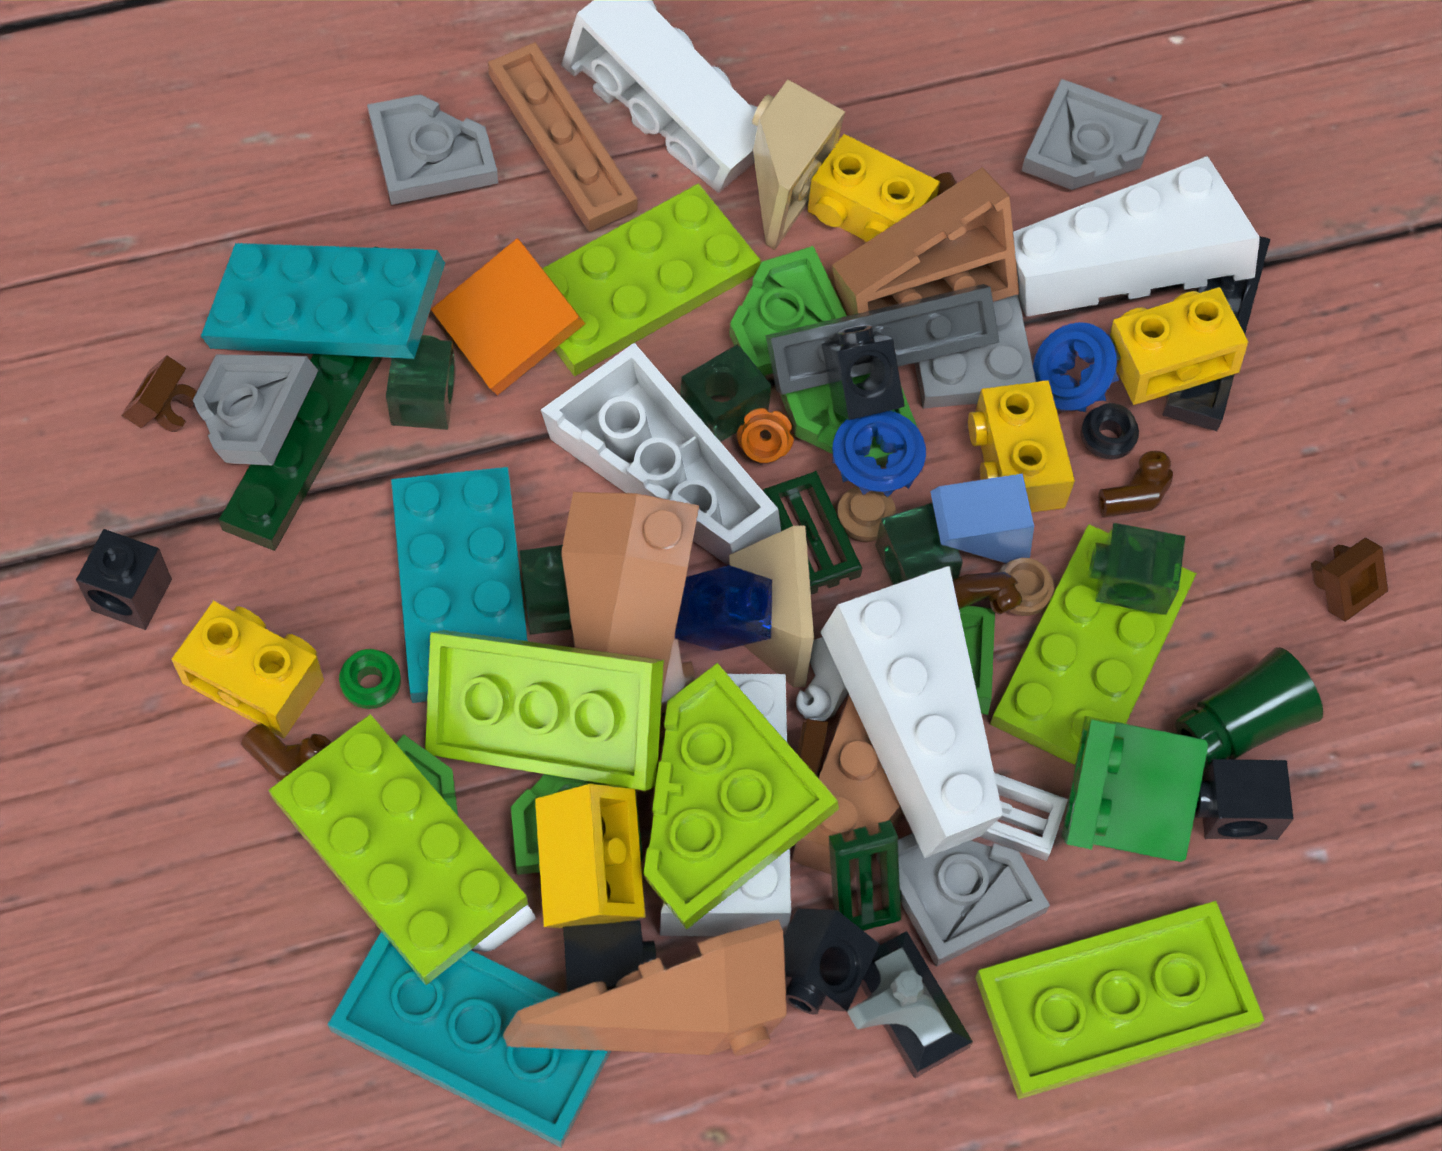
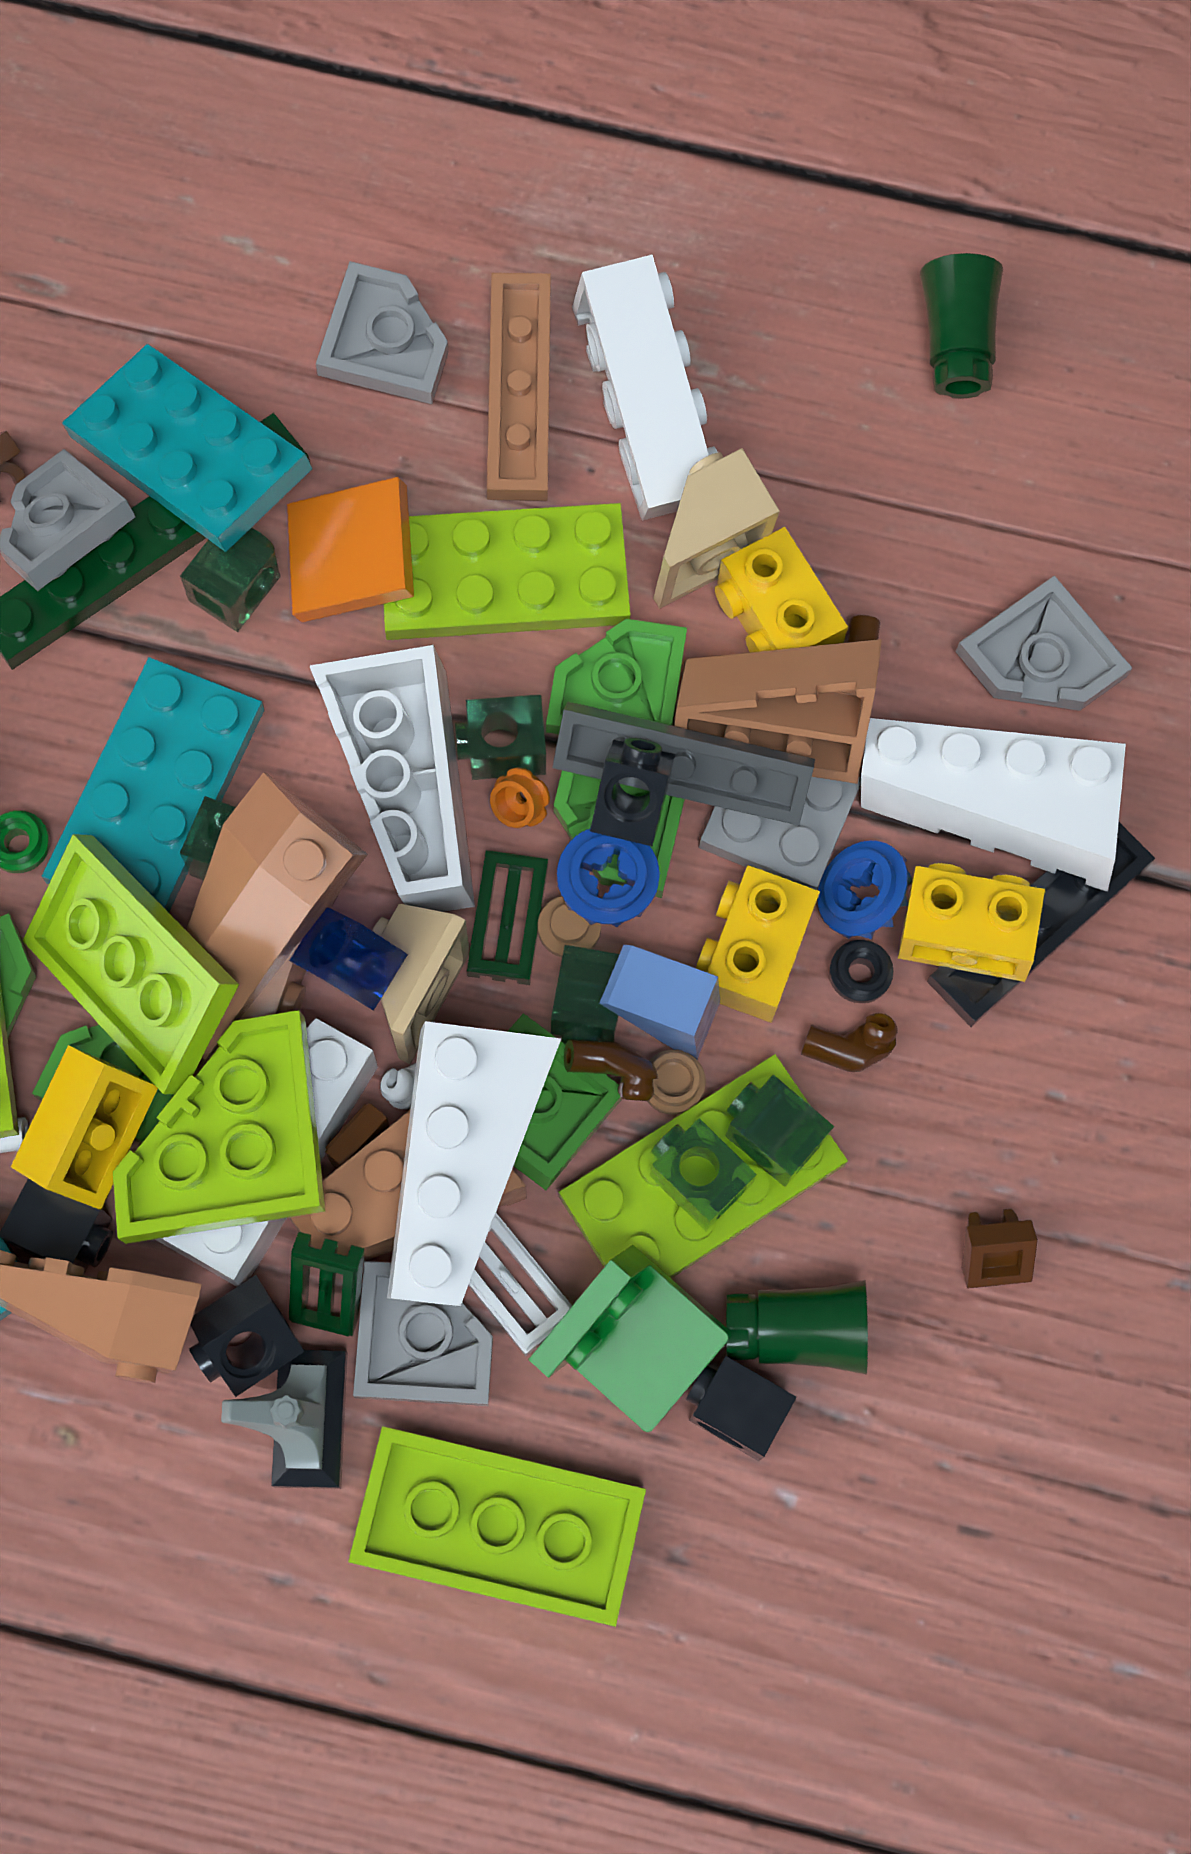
camera: 30 degrees right, 10 degrees up
(1119, 615) = (704, 1202): none -> clear green brick

